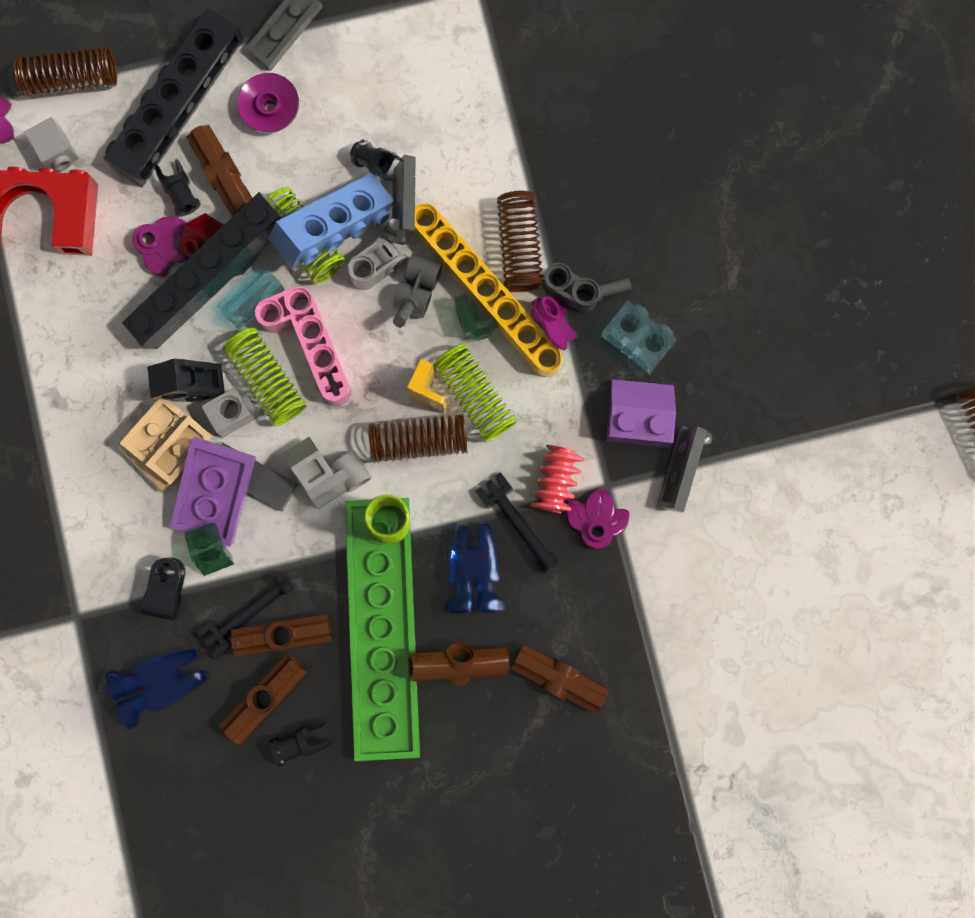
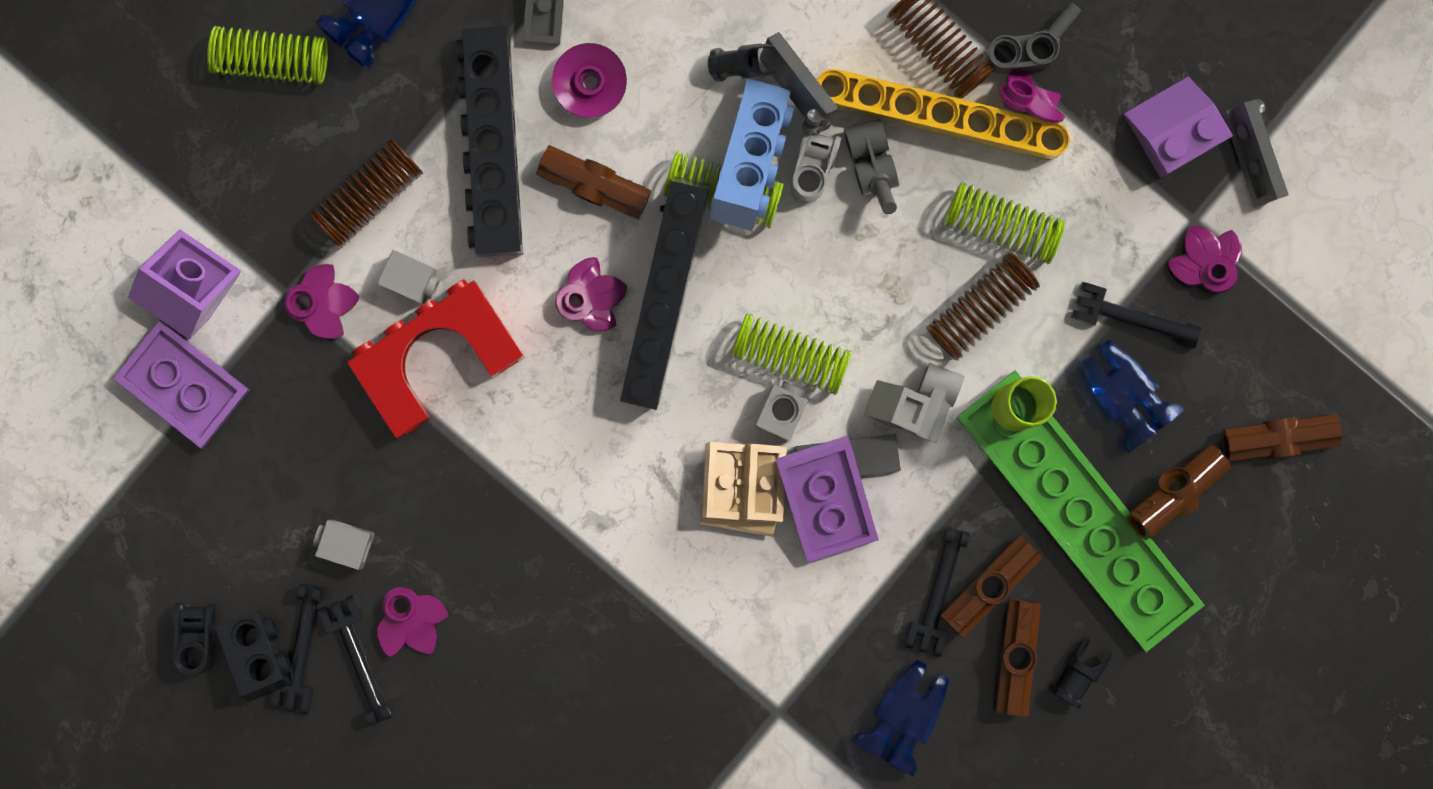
camera: 35 degrees left, 5 degrees up
(163, 594) = (850, 630): black piece -> none
(178, 189) = (564, 230): black piece -> none
(185, 380) = (724, 412): black brick -> none
(197, 233) = (627, 262): dark red bracket -> none
(208, 550) = (861, 555): clear green bracket -> none
(242, 301) = (714, 286): clear light blue panel -> none
(312, 348) = (813, 294): bright pink beam -> none
(420, 384) = (950, 252): yellow panel -> none
(467, 315) = (942, 153): clear green bracket -> none
(557, 480) = (1145, 250): coral piece -> none
(633, 343) = (1123, 63): clear light blue brick -> none

